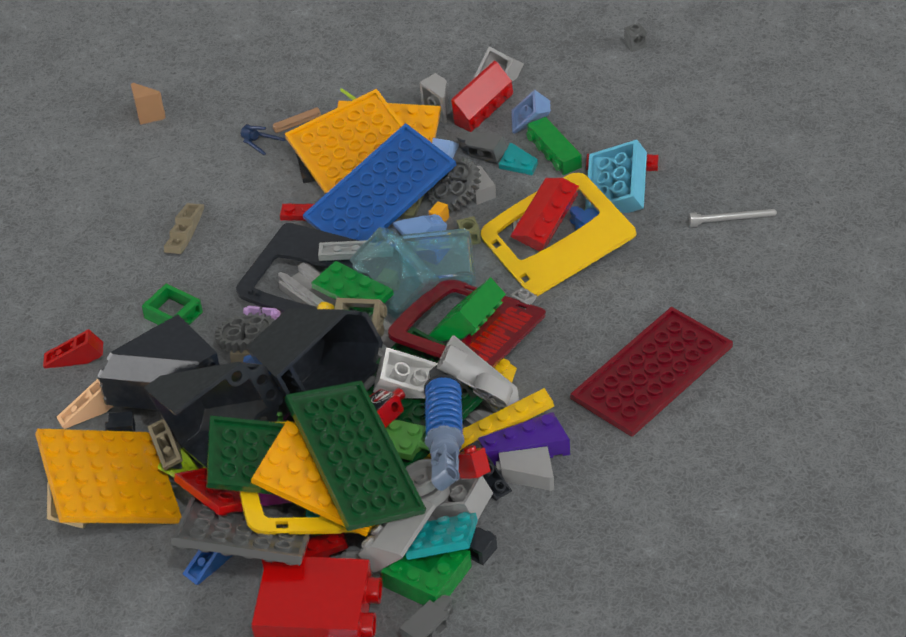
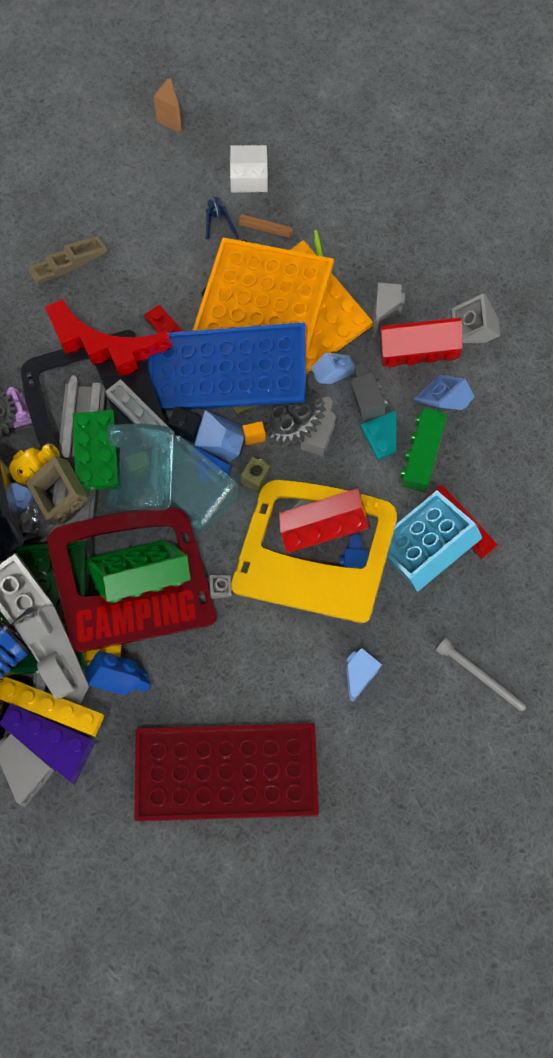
camera: 40 degrees right, 25 degrees up
(244, 101) = (248, 168): none -> white slope
(279, 240) = (100, 346): none -> red arch
(524, 371) = (116, 674): none -> blue hinge
(663, 266) = (360, 671): none -> light blue slope

